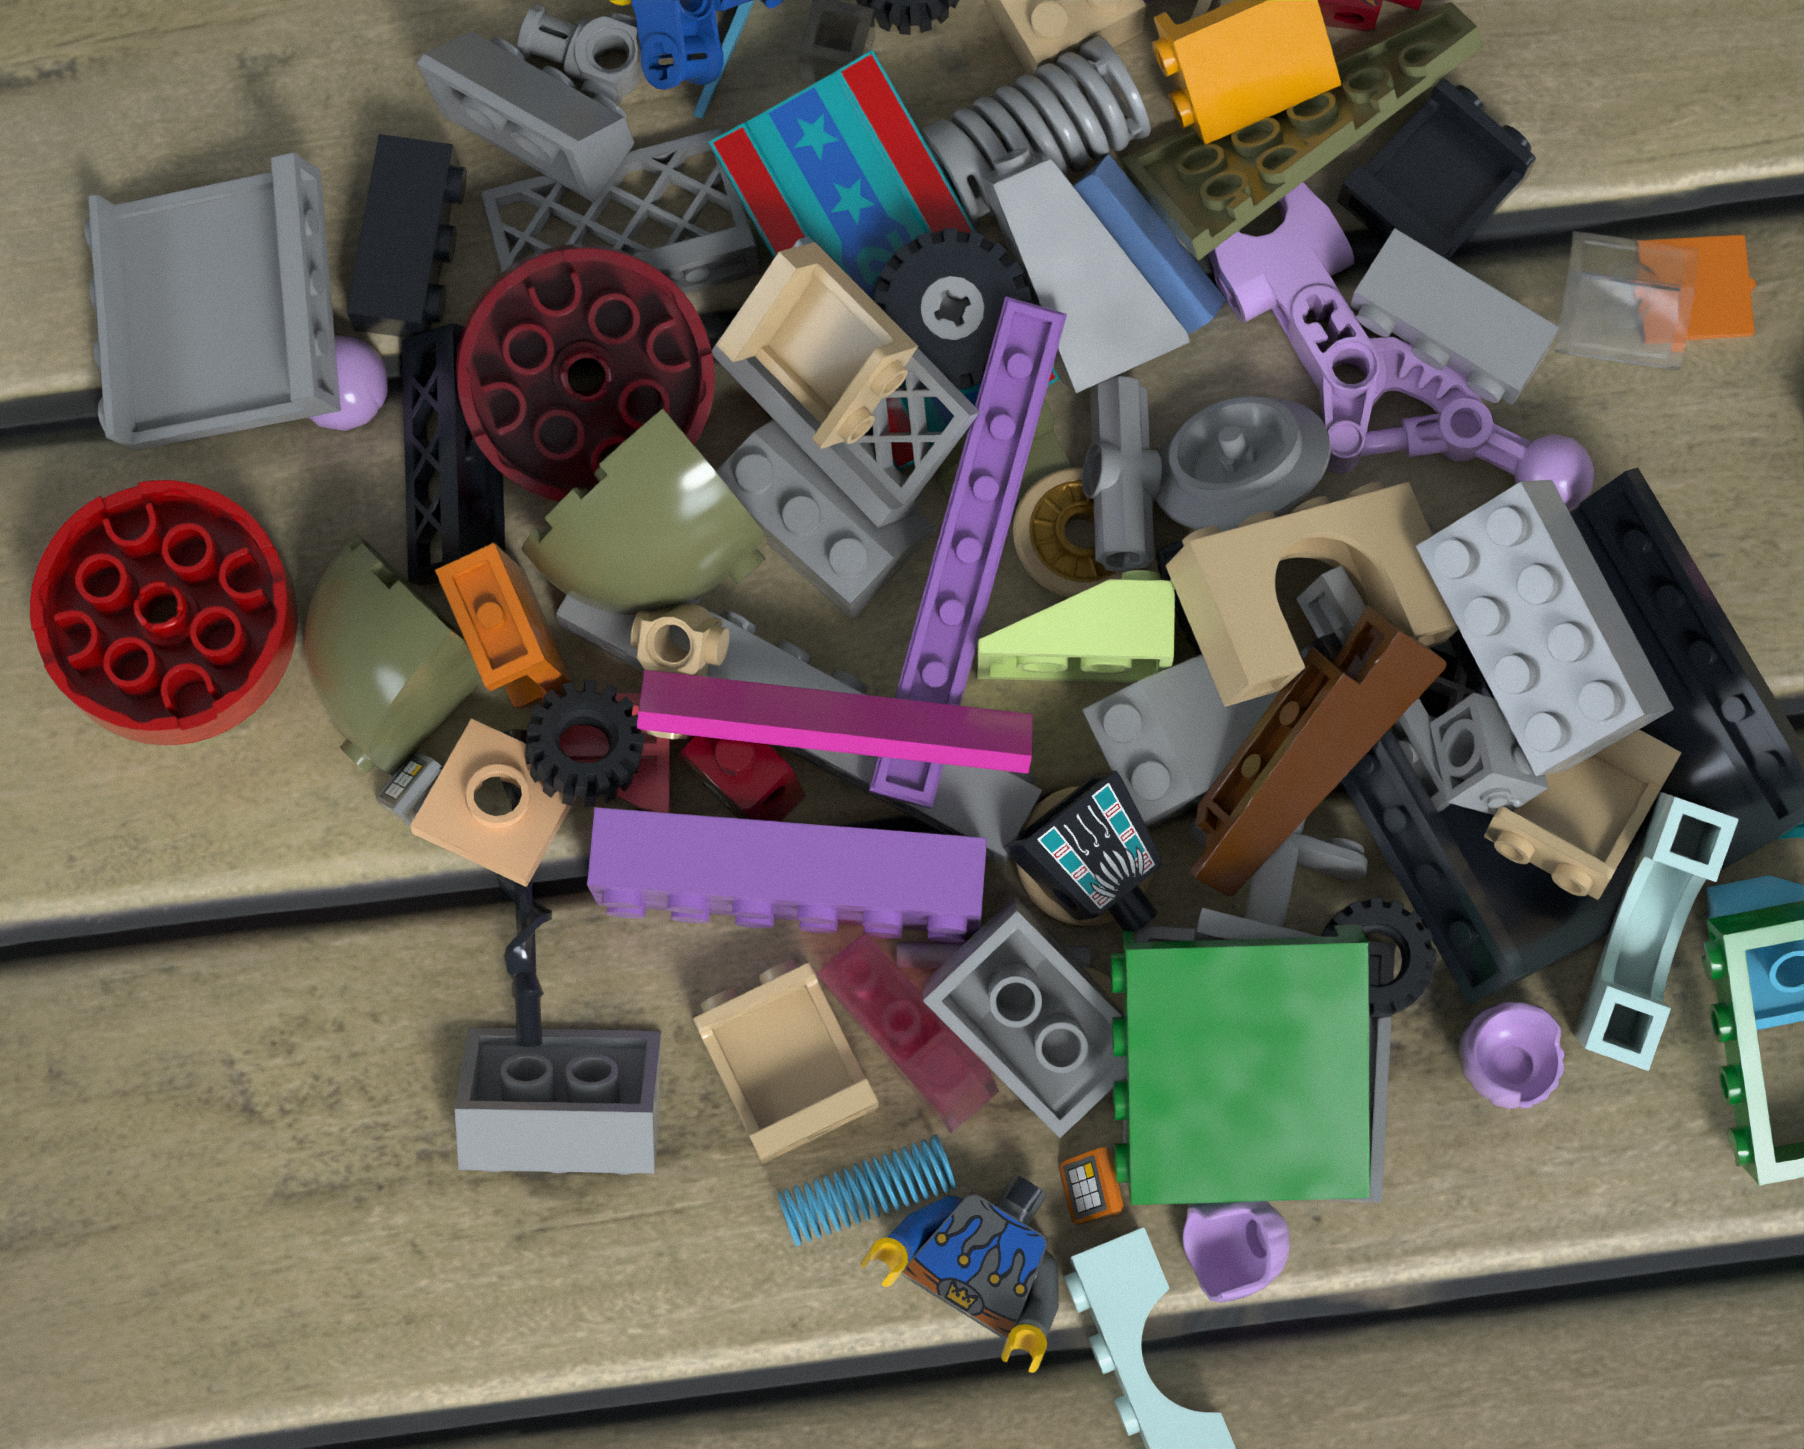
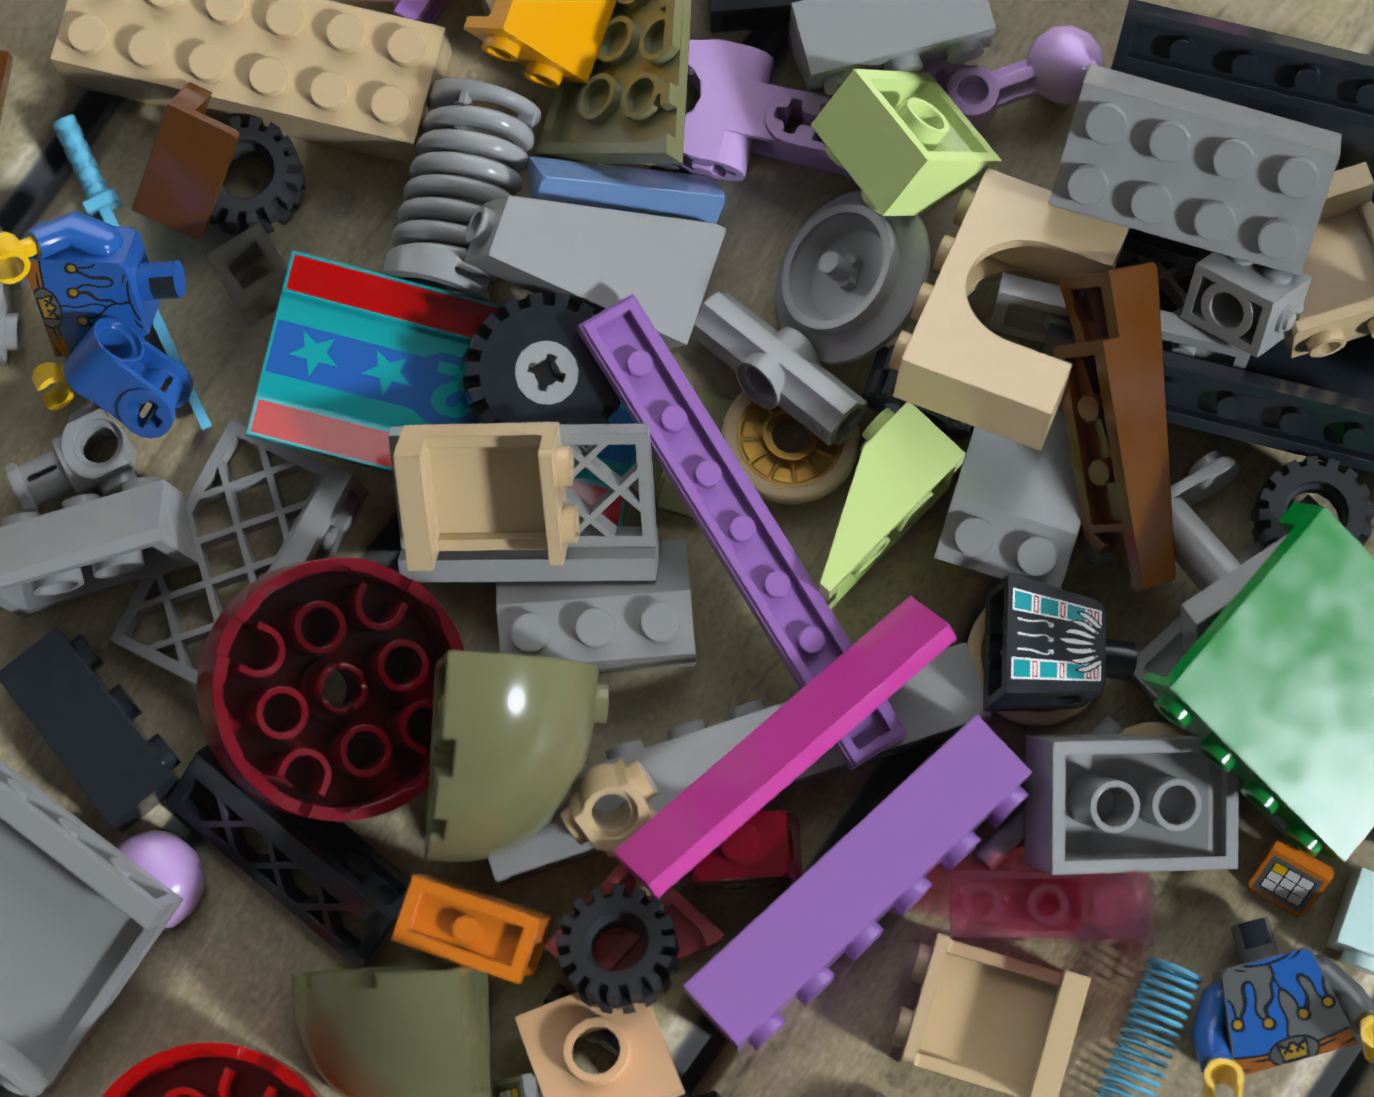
camera: 45 degrees left, 0 degrees up
(1371, 403) = (902, 140): none -> yellowish green slope

